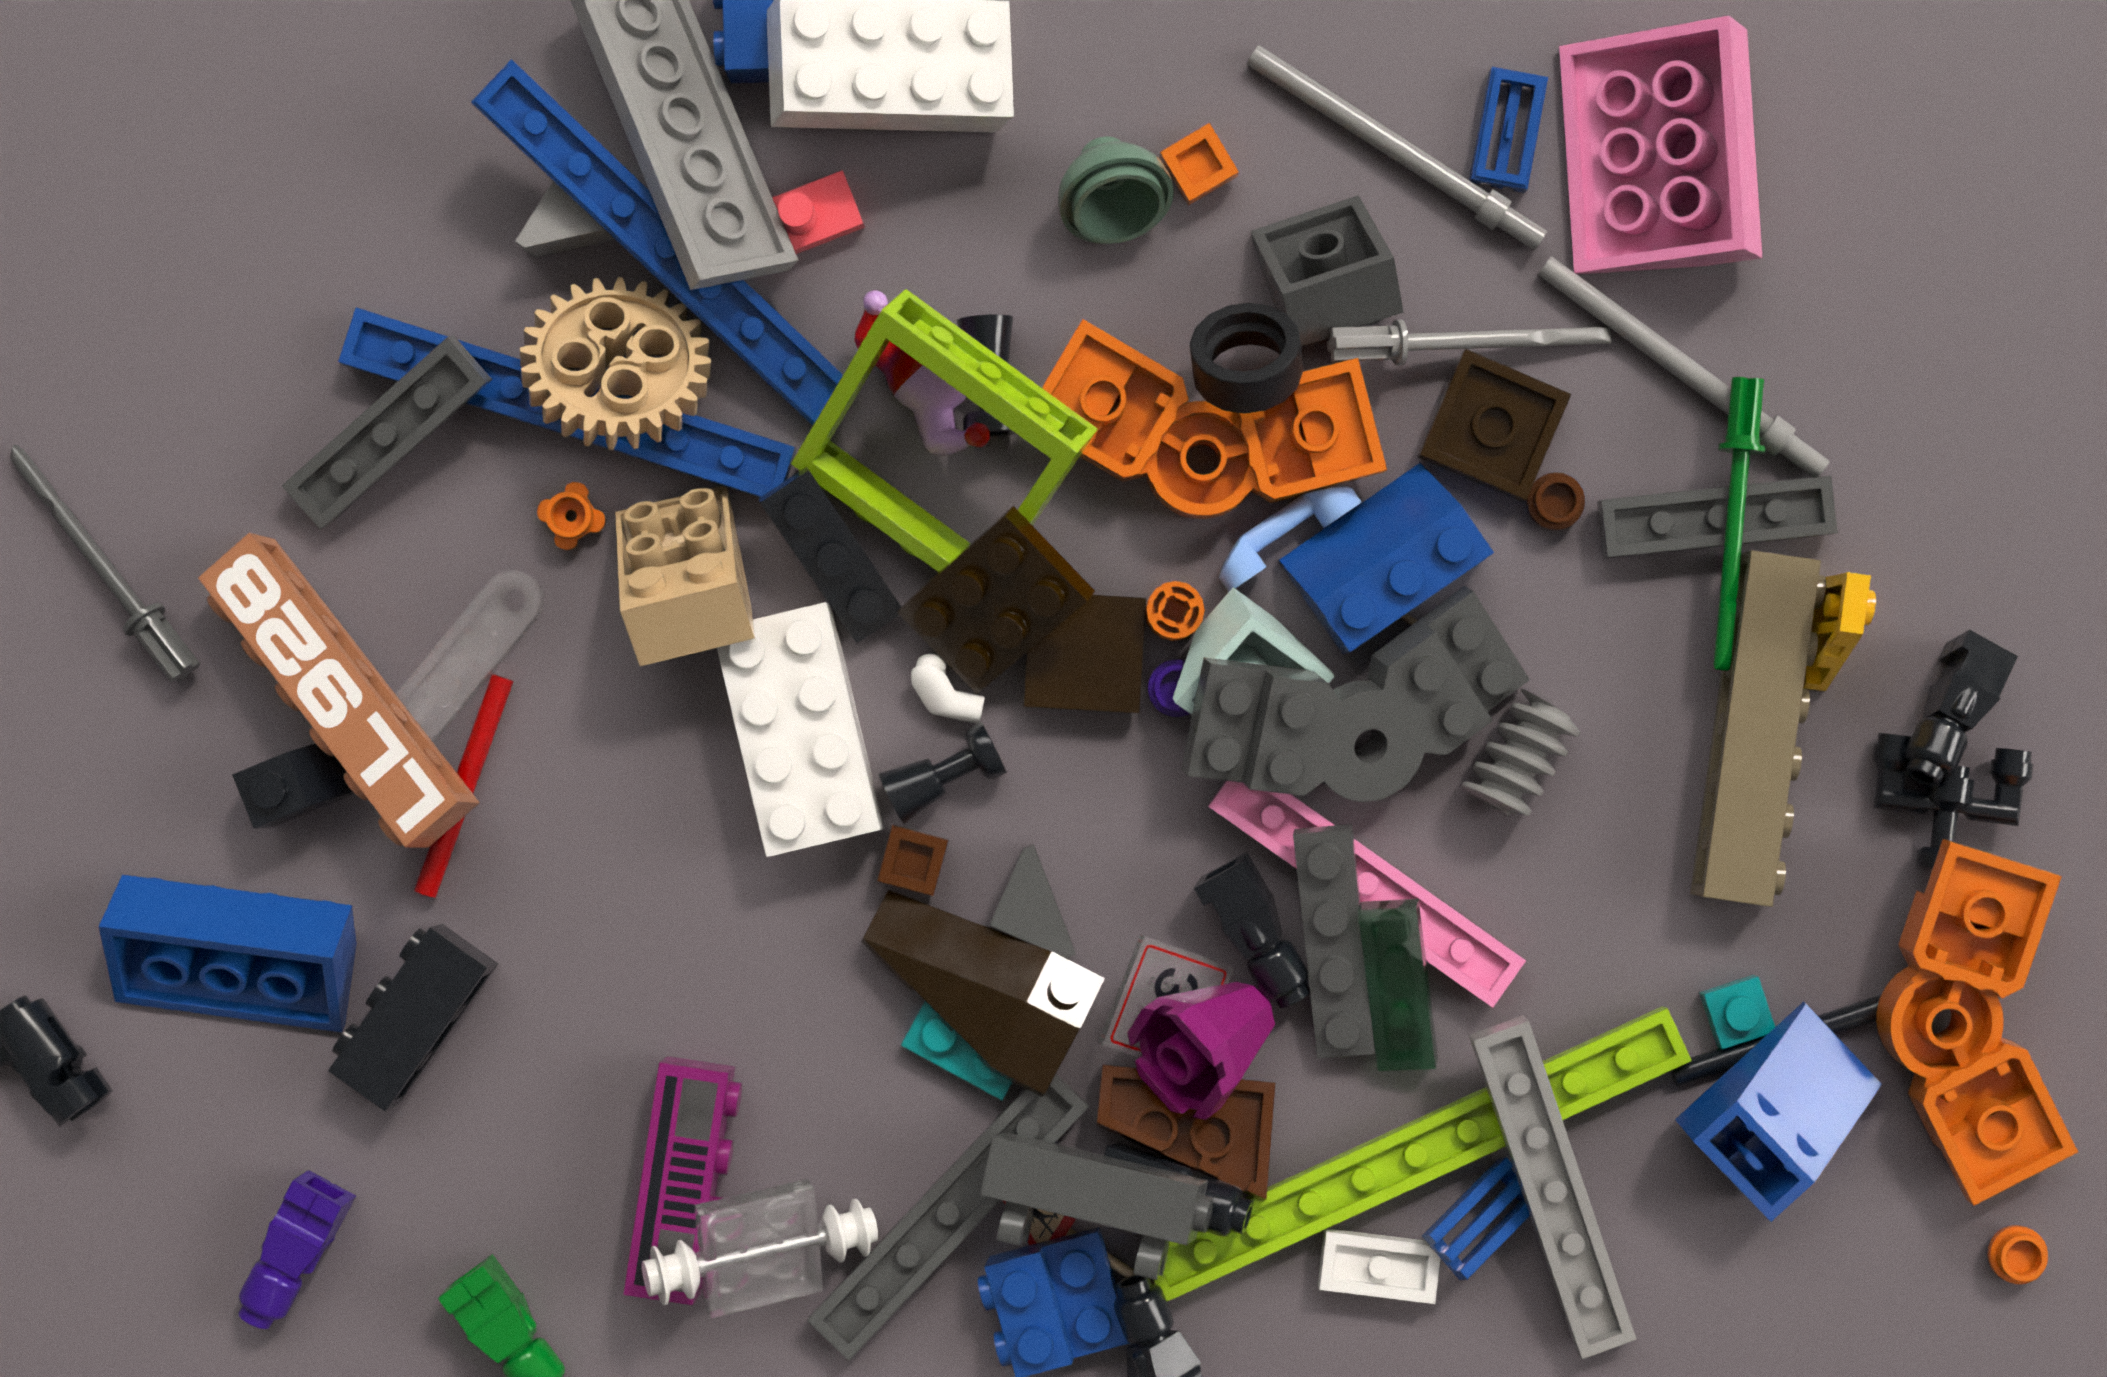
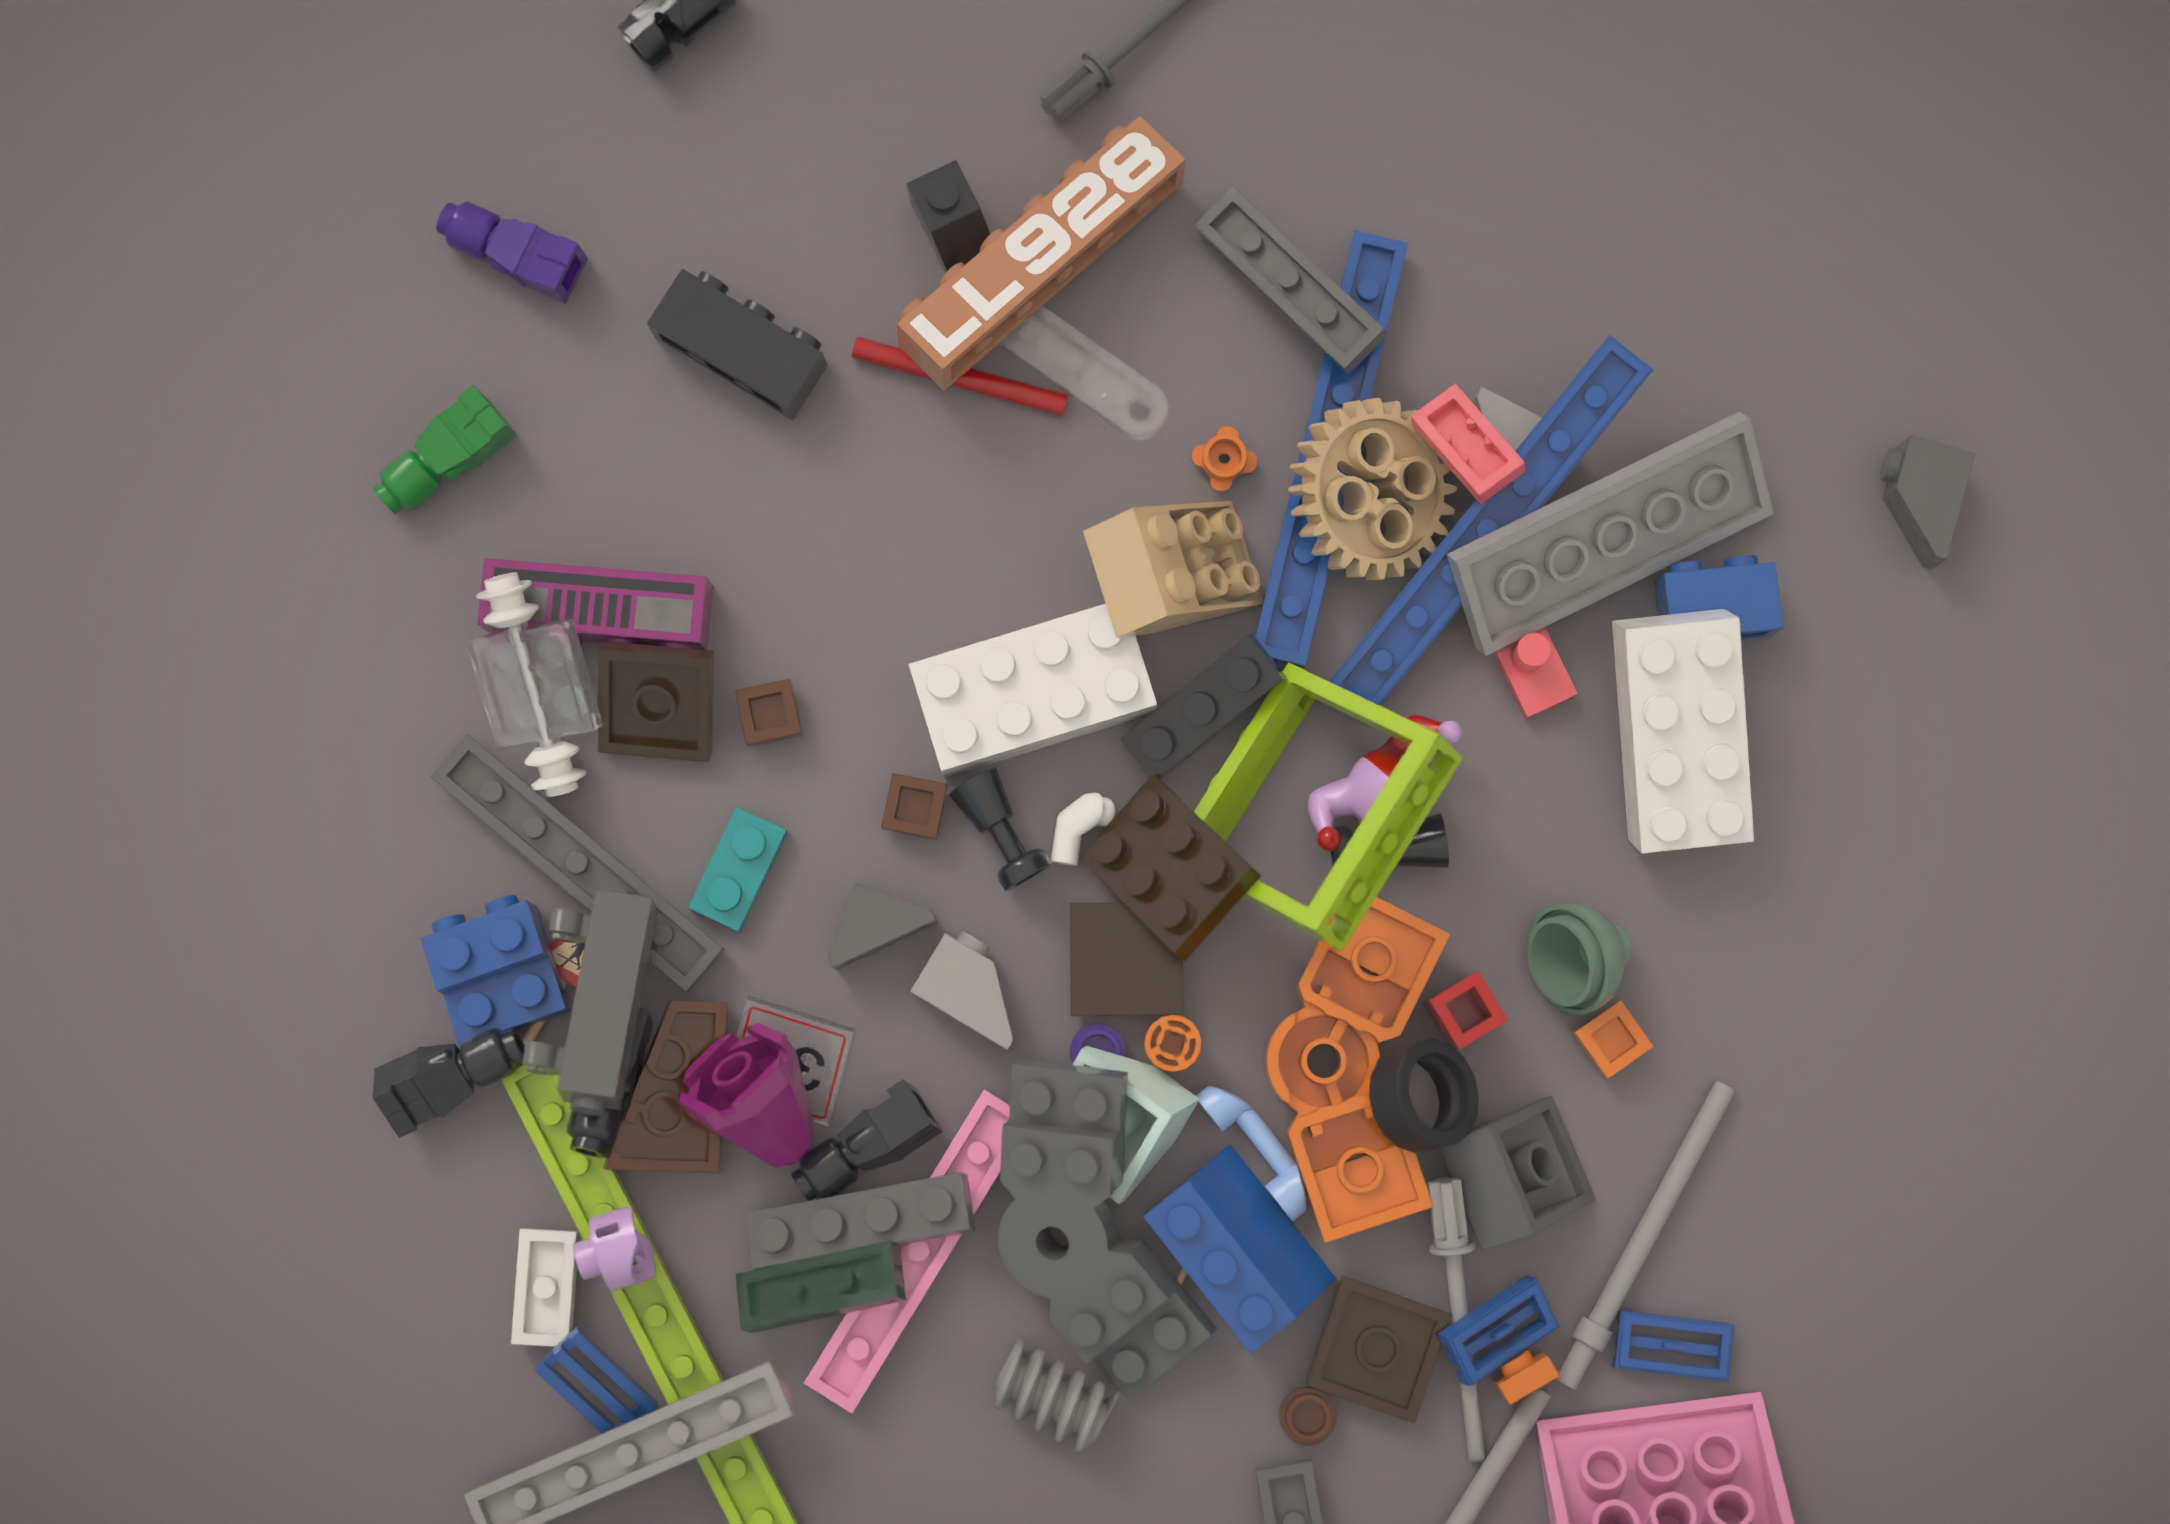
camera: 85 degrees right, 5 degrees down
(229, 952) = (788, 171): blue slope -> none
(575, 259) = (1468, 443): none -> coral tile
(785, 1122) = (655, 701): none -> dark brown plate
(805, 1005) = (768, 712): none -> reddish brown plate
(996, 991) = (793, 892): dark brown wedge -> none
(1104, 817) = (966, 987): none -> light grey slope
(1161, 310) = (1465, 1011): none -> red brick
(1348, 1195) = (613, 1249): none -> lavender piece
(1475, 305) = (1455, 1334): none -> blue tile
(1530, 280) = (1524, 1375): none -> orange plate

